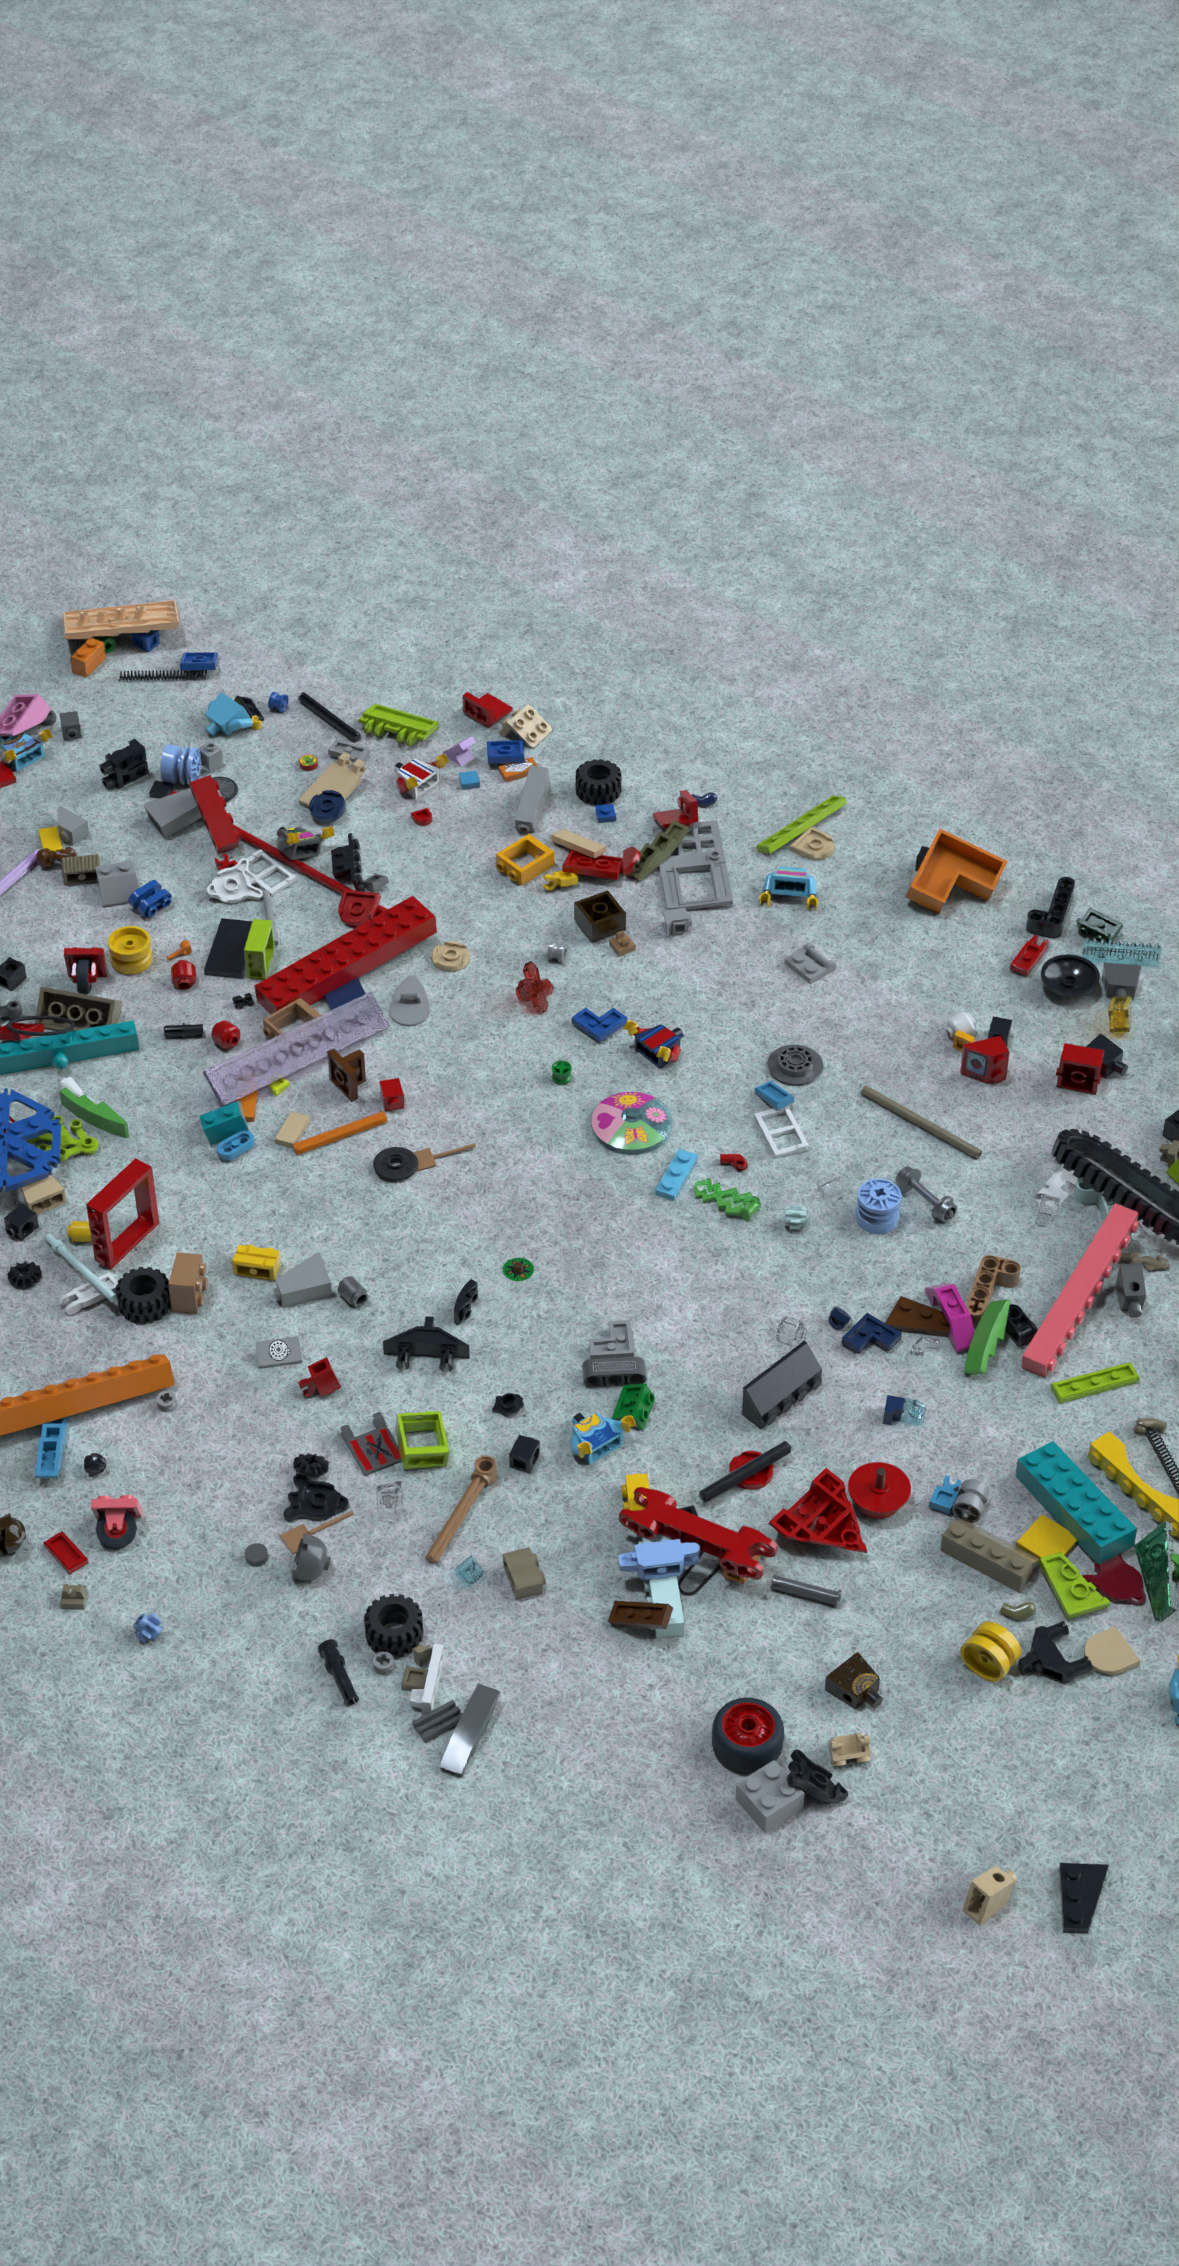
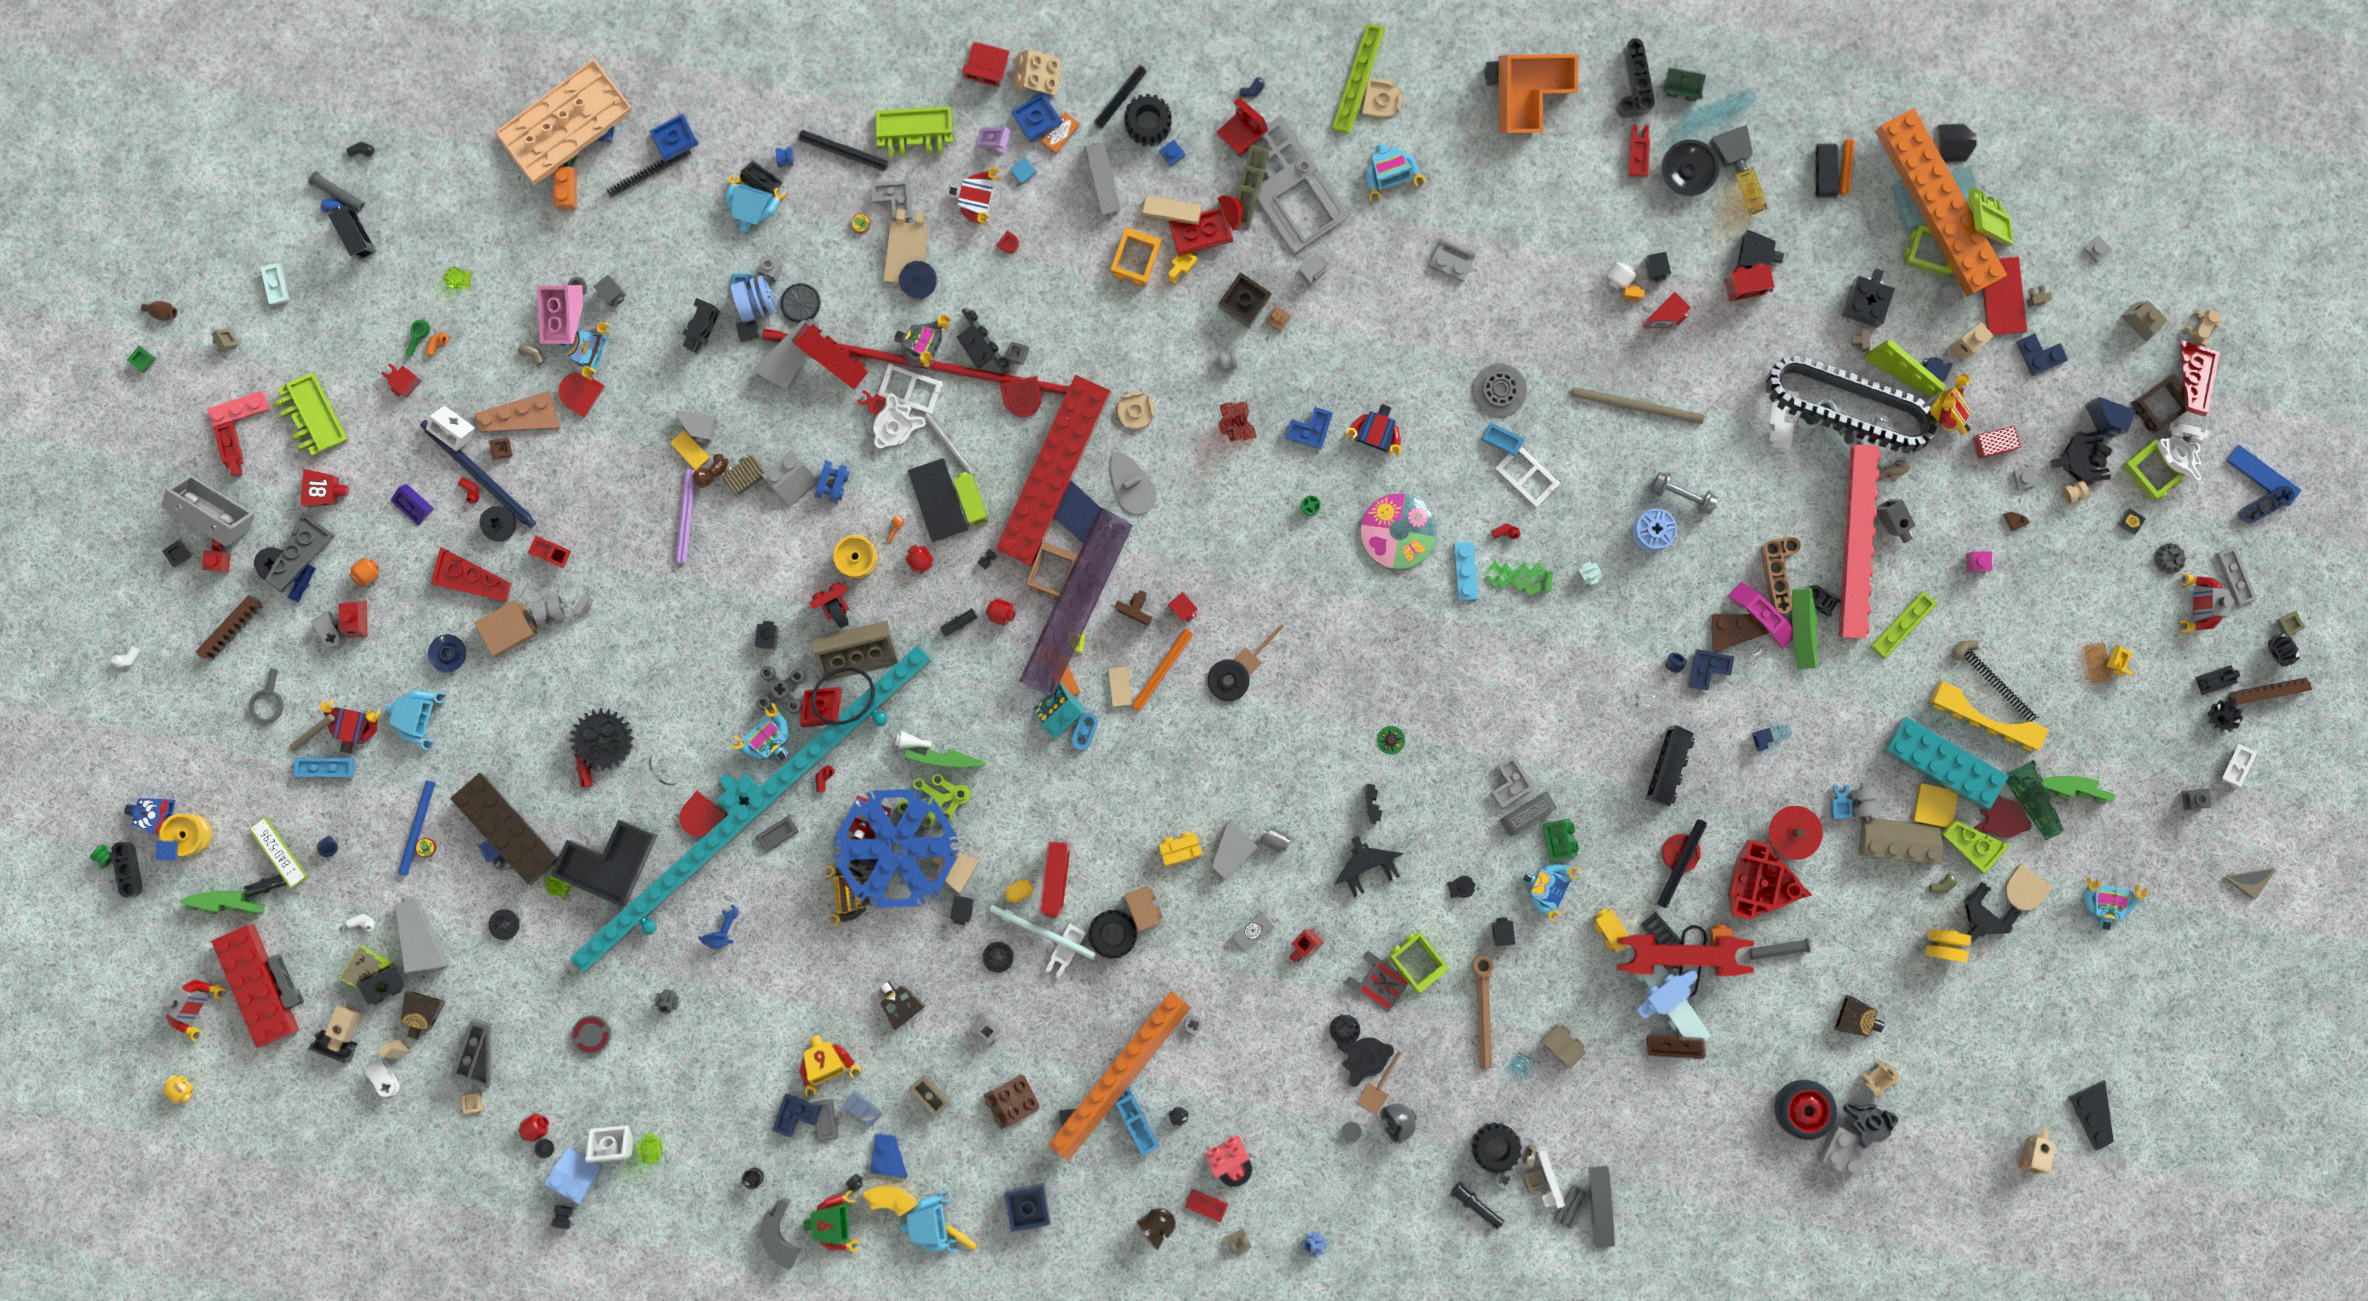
camera: 30 degrees left, 40 degrees up
(570, 770) = (1120, 96): none -> black axle

